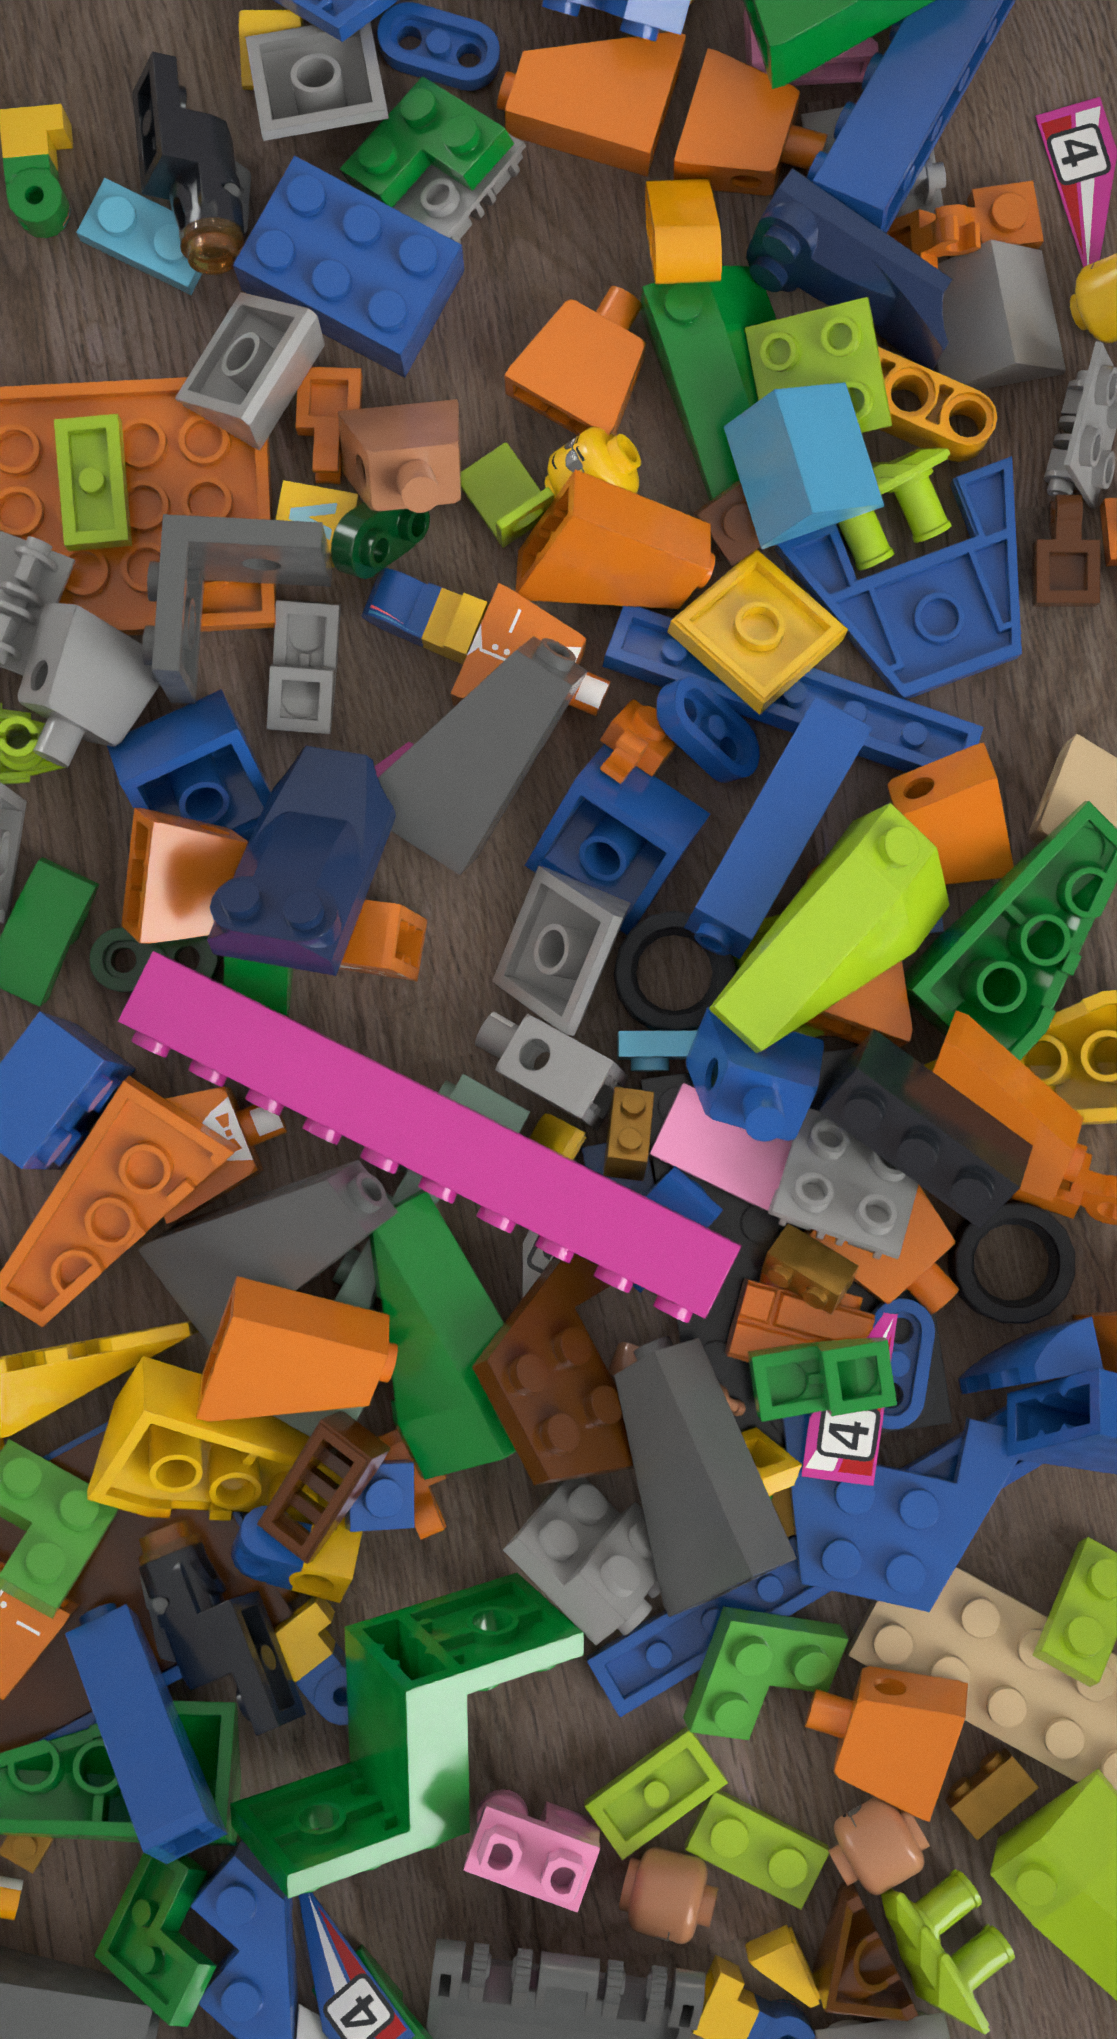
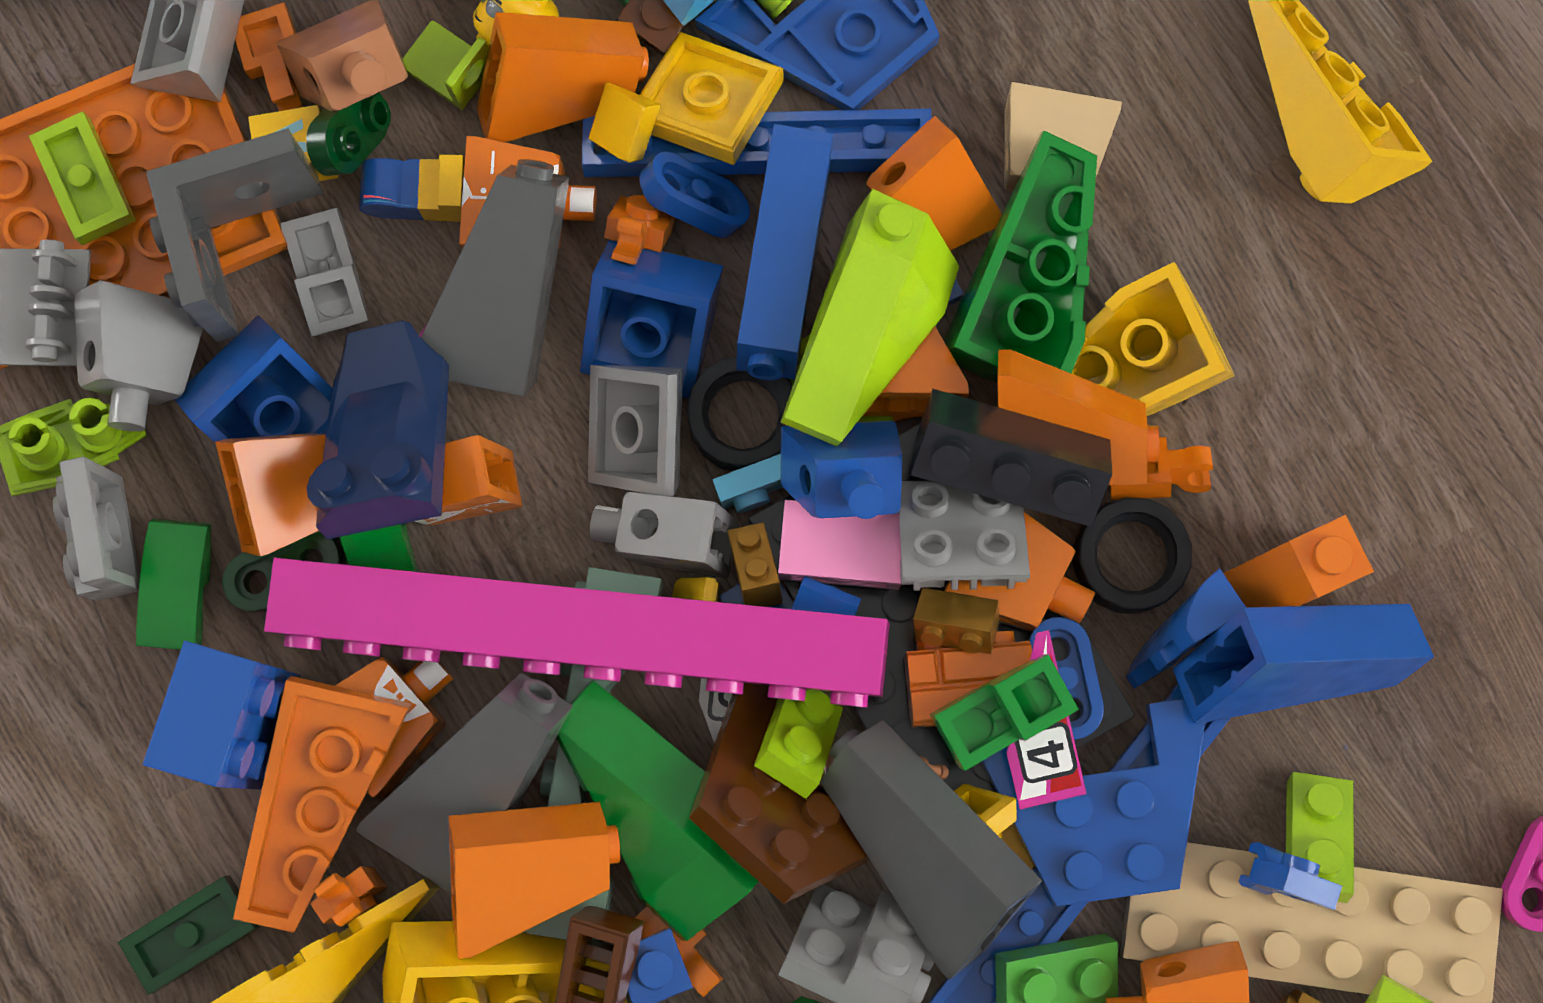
camera: 15 degrees left, 5 degrees down
(107, 1311) = (347, 897): none -> orange plate
(607, 1330) = (799, 741): none -> lime plate
(663, 630) = (624, 123): none -> yellow slope
(1041, 1643) = (1289, 876): none -> blue plate

